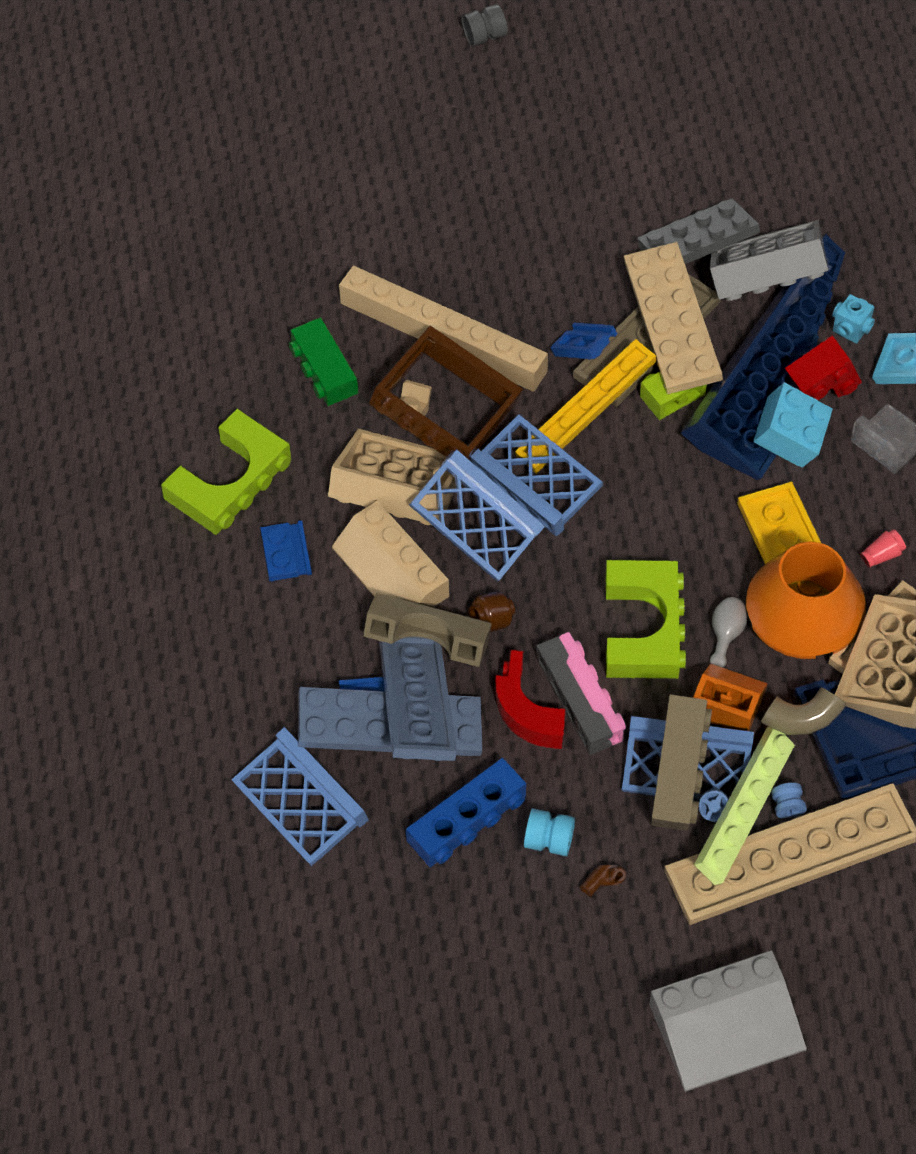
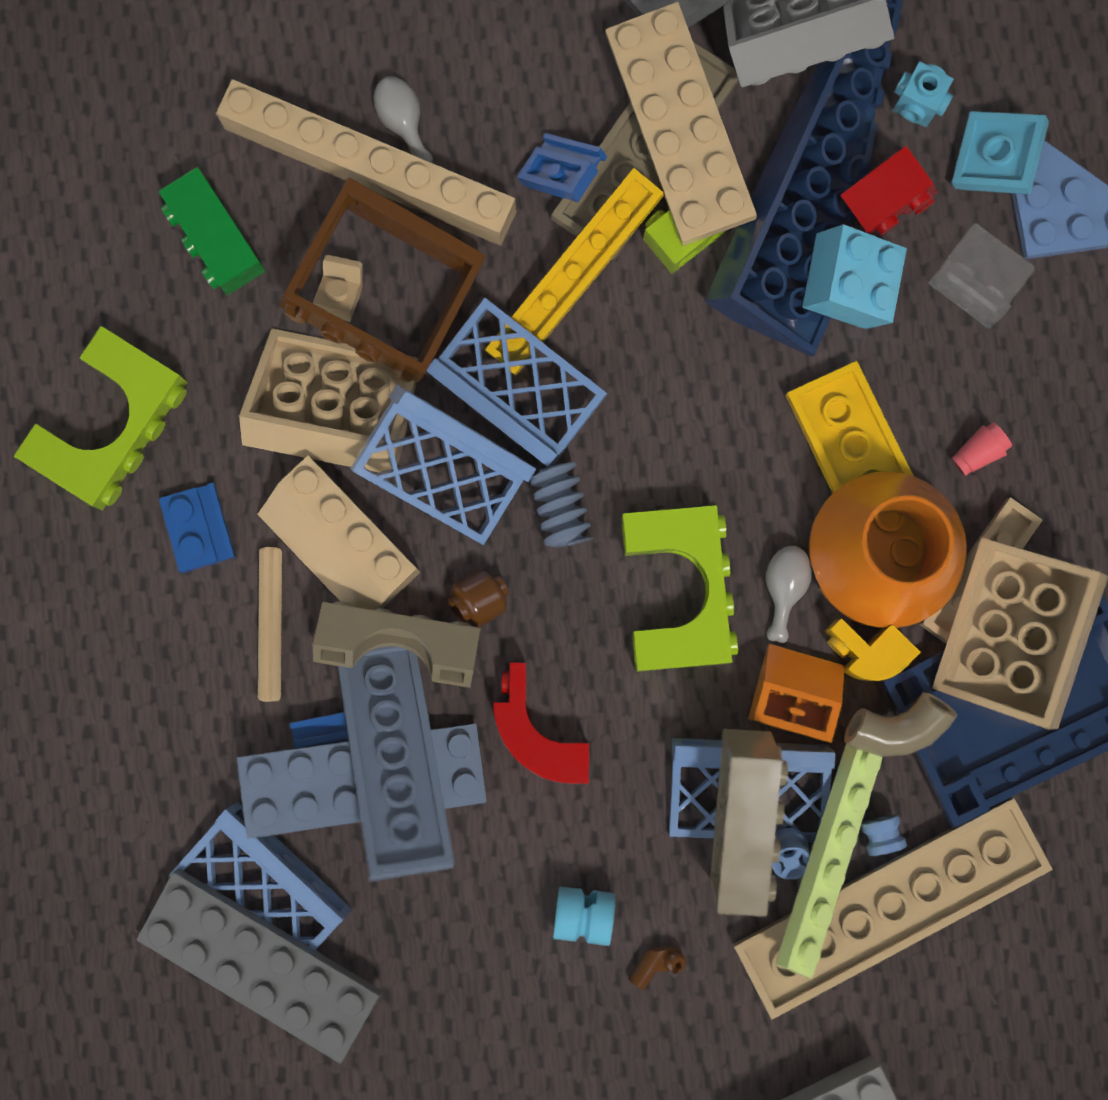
camera: 10 degrees left, 25 degrees up
(294, 846) = (259, 965): none -> dark grey plate
(331, 618) = (269, 624): none -> tan axle
(468, 298) = (400, 112): none -> light grey piece
(497, 780) = (425, 935): blue brick -> none
(560, 556) = (560, 505): none -> sand blue piece
(580, 693) = (605, 708): dark grey piece -> none
(785, 677) = (878, 659): none -> yellow brick

